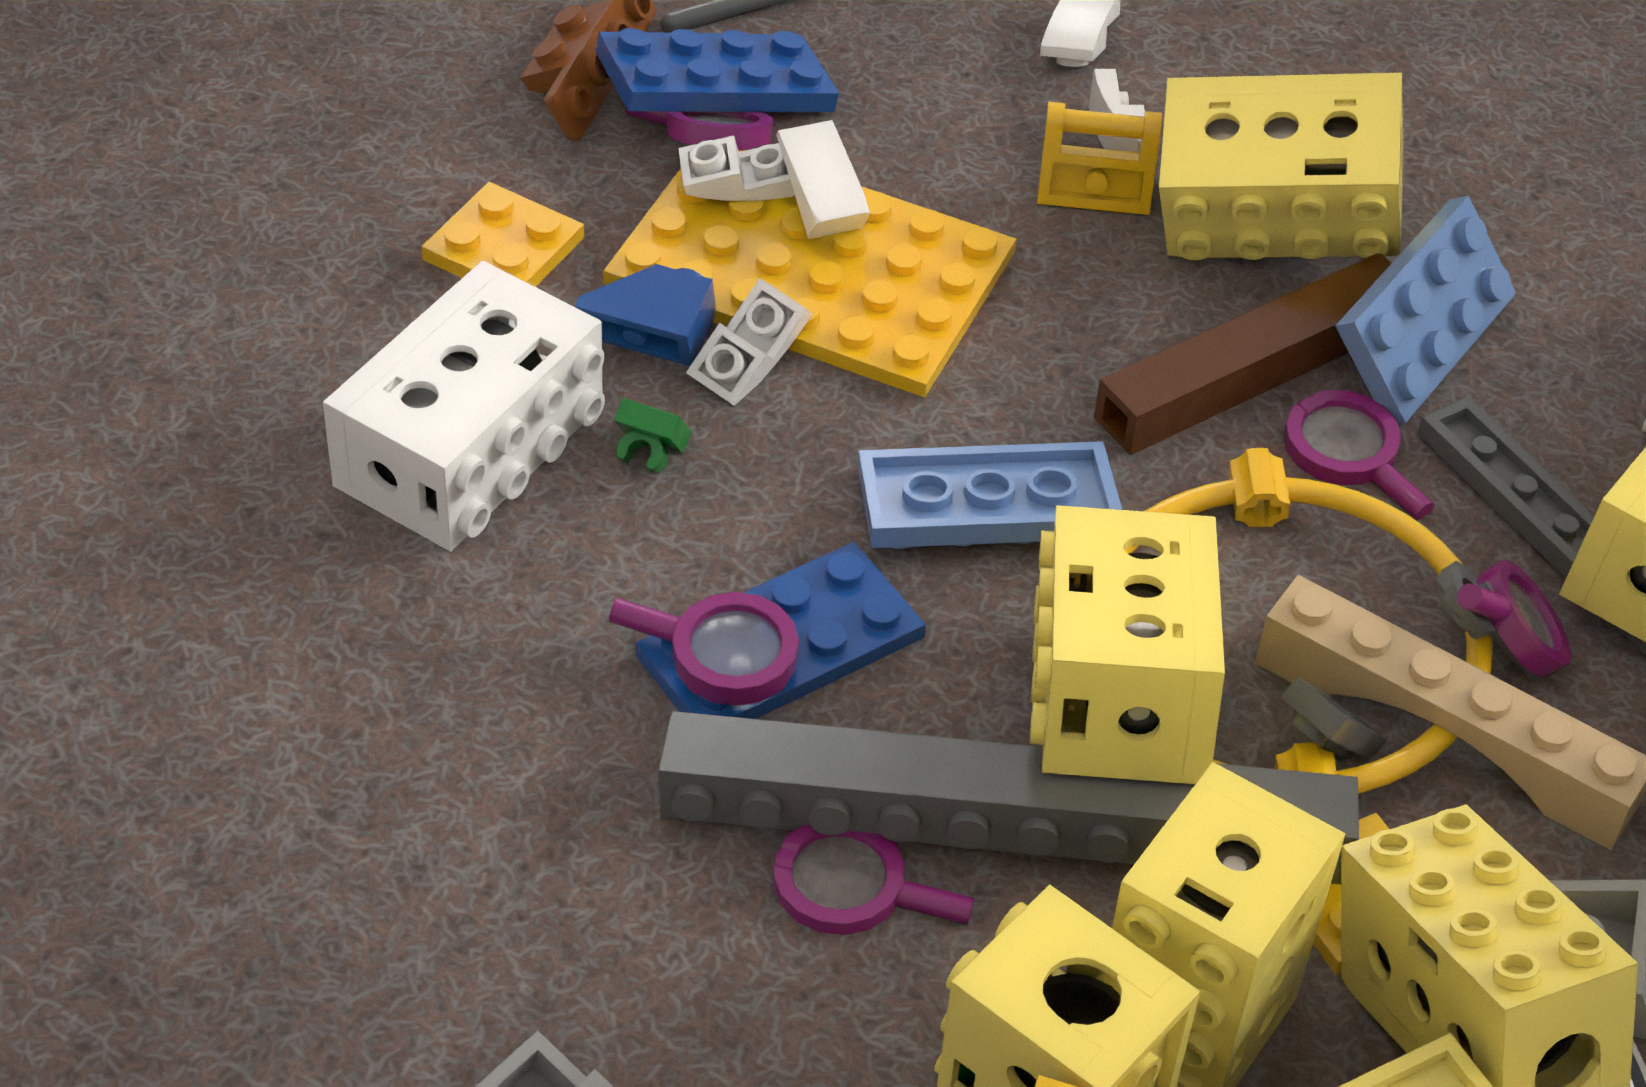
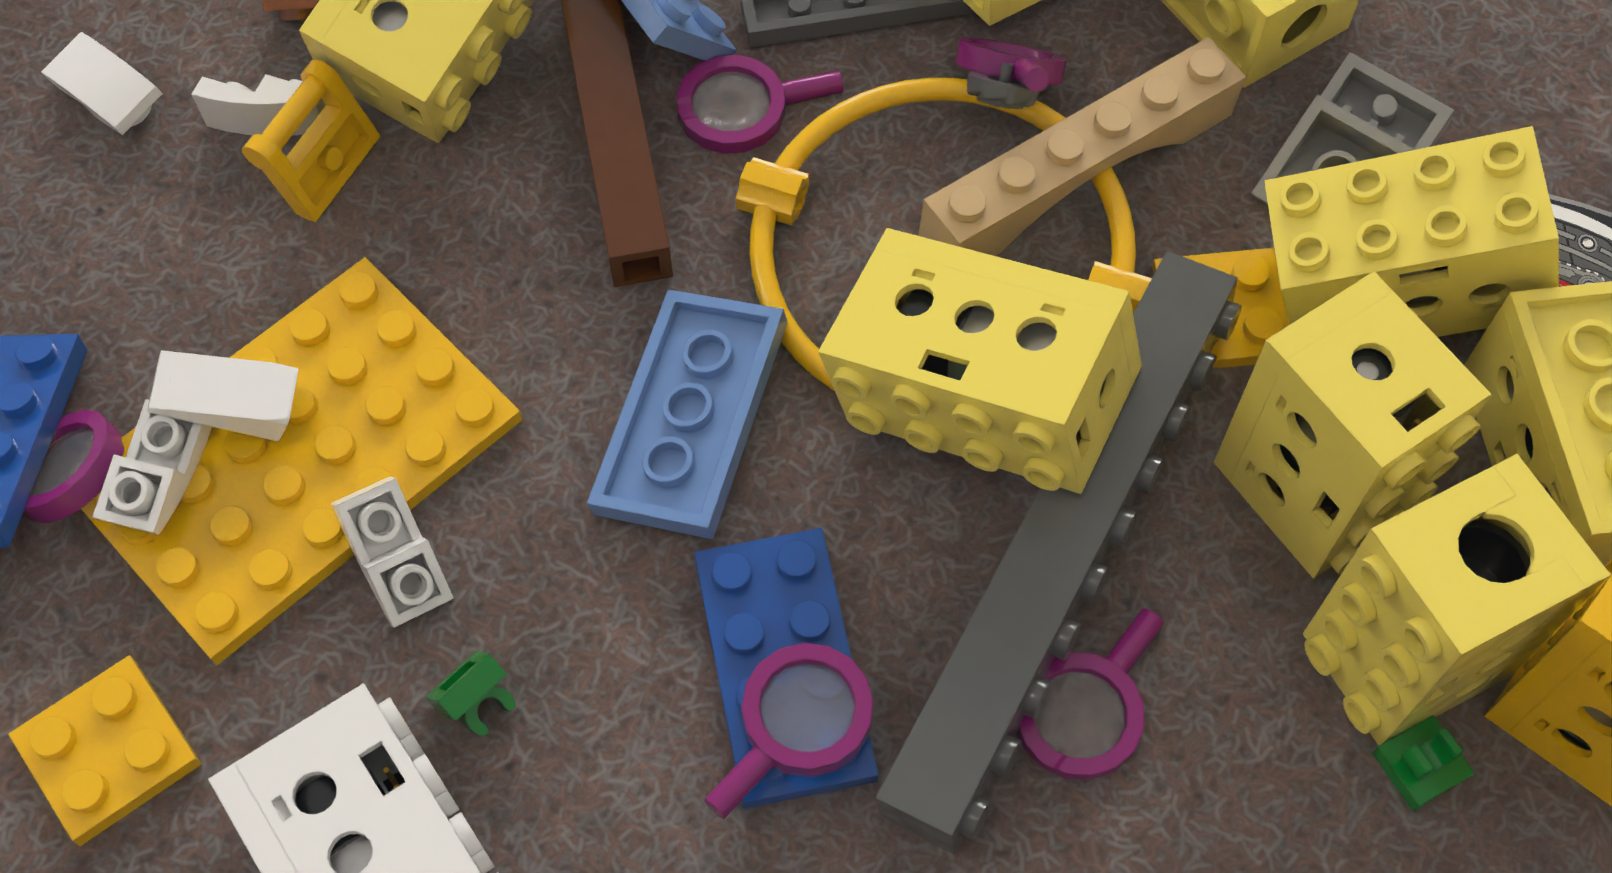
camera: 65 degrees left, 15 degrees up
(655, 312) = (311, 627): blue slope -> none
(1330, 721) = (1075, 246): dark grey plate -> none

